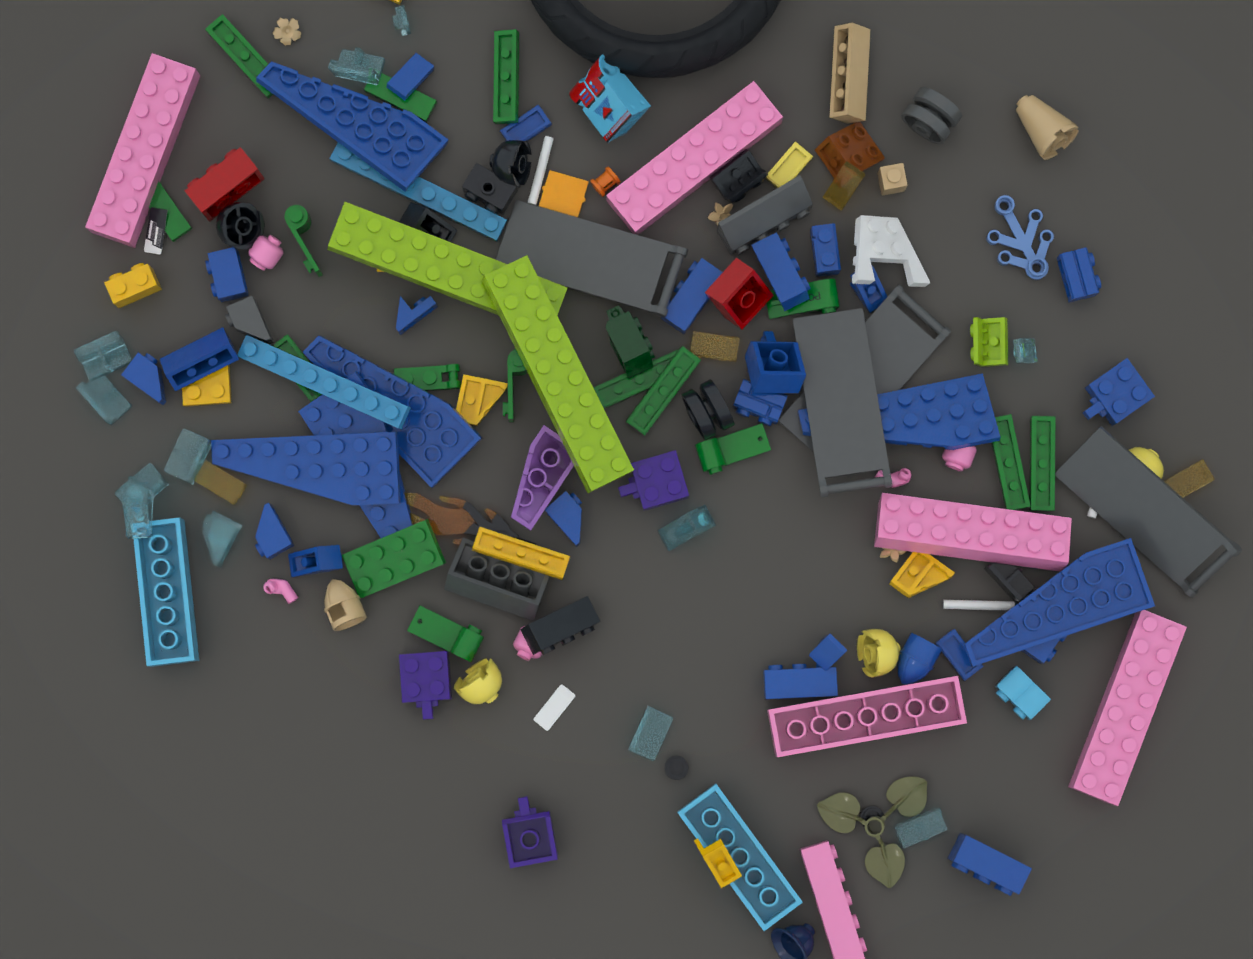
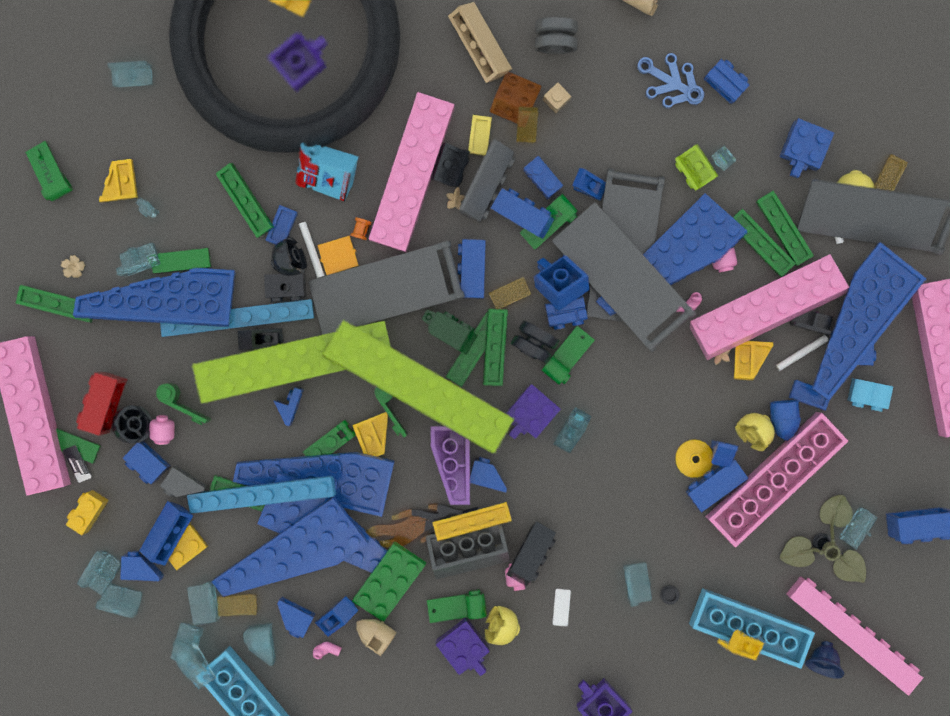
camera: 35 degrees left, 5 degrees up
(410, 76) = (178, 243): blue tile -> none
(739, 293) = (504, 247): red brick -> none
(782, 639) = (687, 452): none -> yellow dish
(886, 242) = (579, 146): white wing -> none

